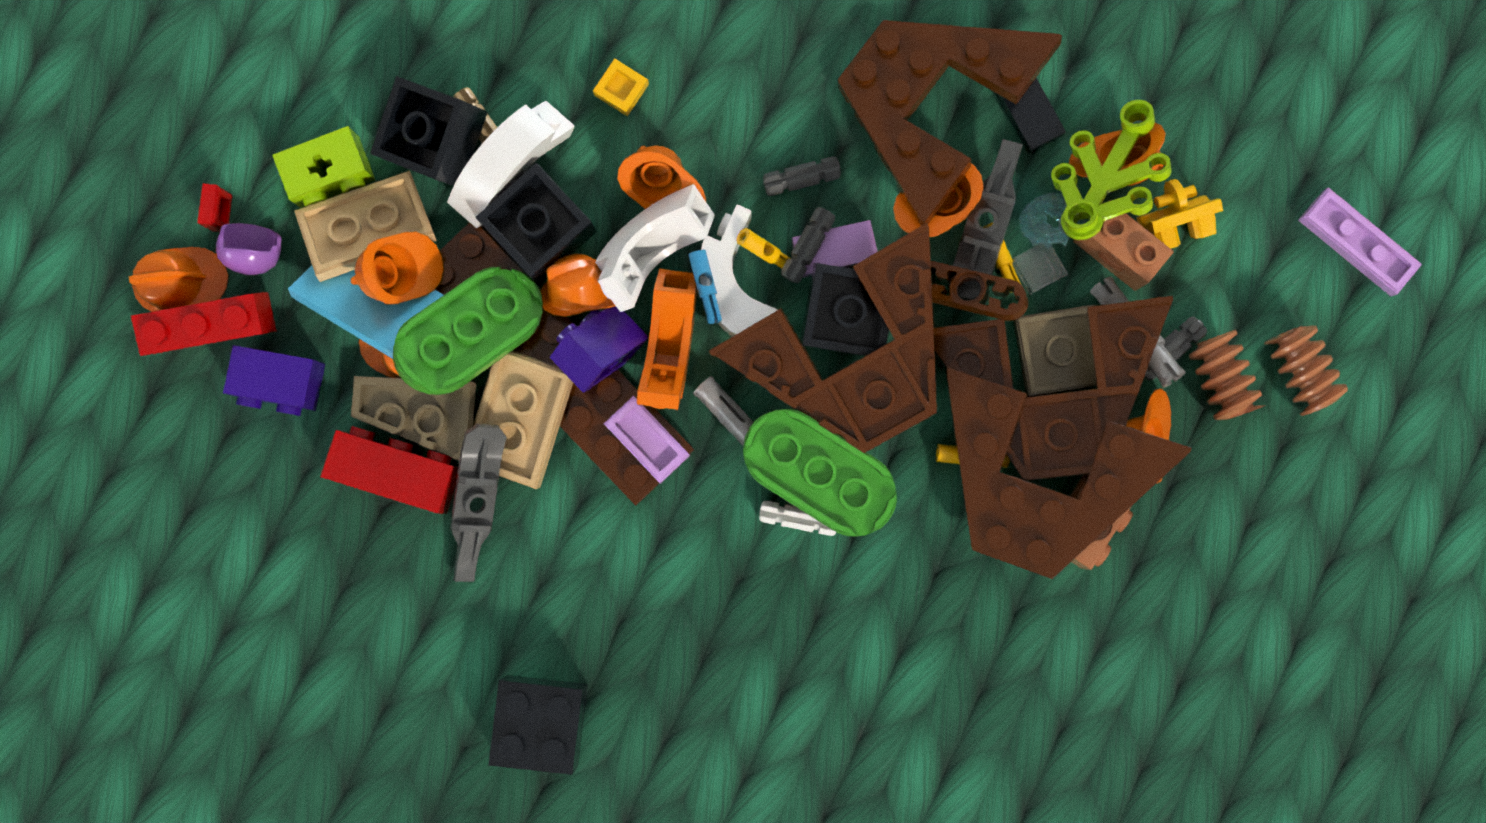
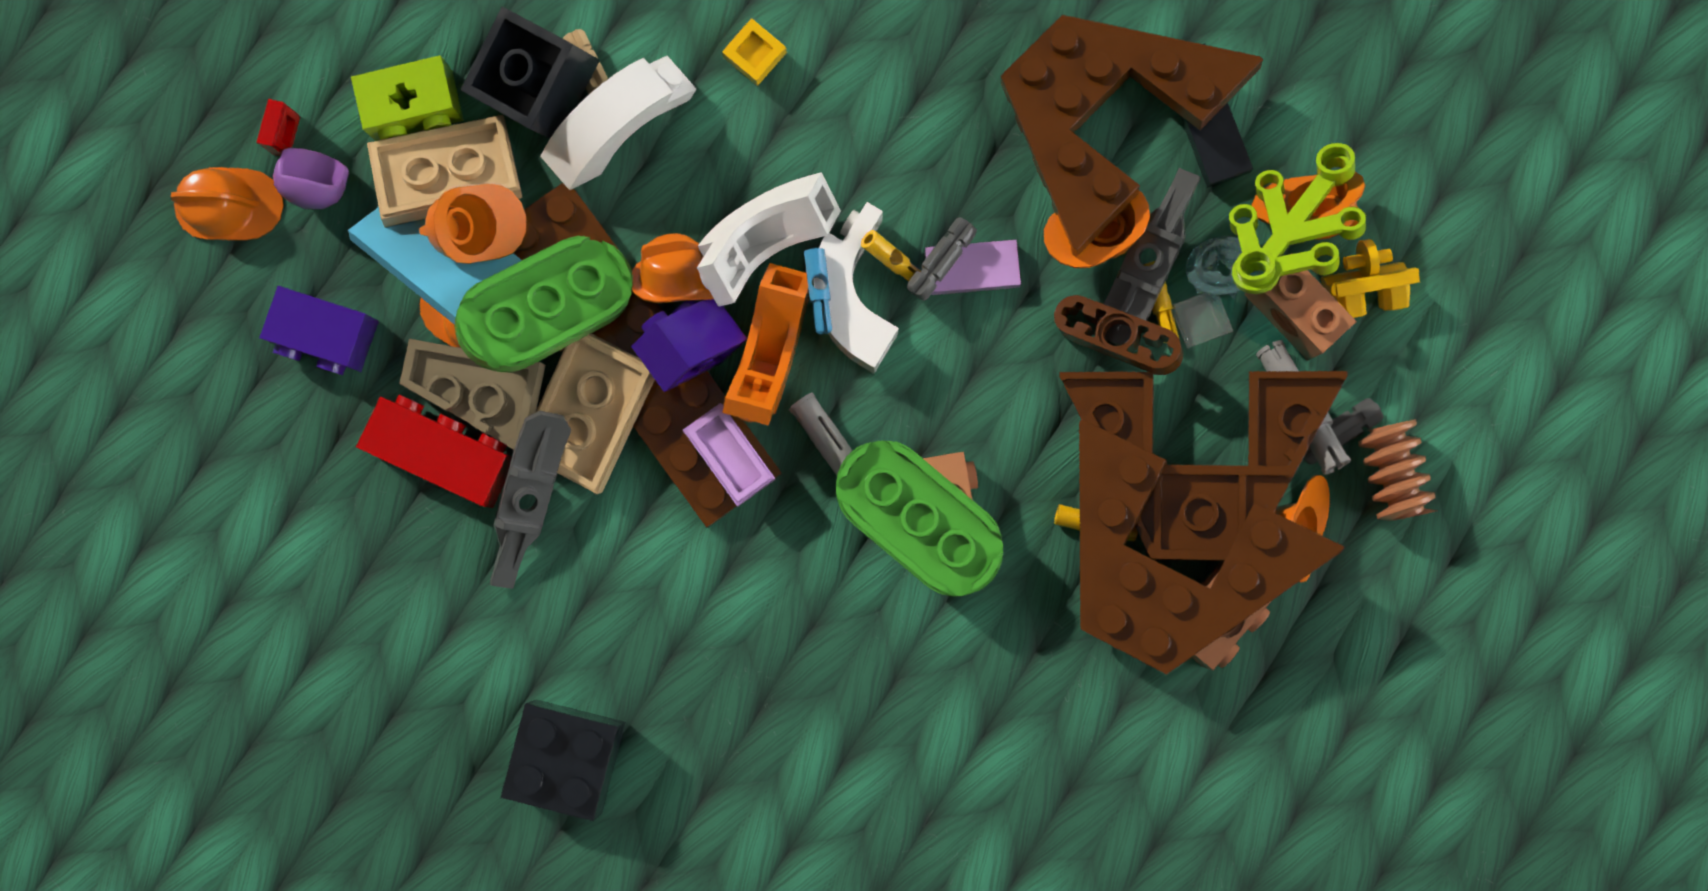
camera: 10 degrees right, 0 degrees up
(203, 323) = (248, 256): red brick -> none
(536, 223) = (637, 193): black brick -> none
(653, 175) = (777, 156): orange piece -> none
(791, 517) = (881, 565): white axle -> none
(801, 176) = (946, 179): dark grey axle -> none
(841, 313) = (977, 339): black brick -> none
(877, 392) = (999, 435): reddish brown wing -> none
(1055, 351) = (1207, 416): dark tan tile -> none
(1307, 368) = (1492, 474): nougat piece -> none
(1360, 242) = (1572, 339): lavender tile -> none

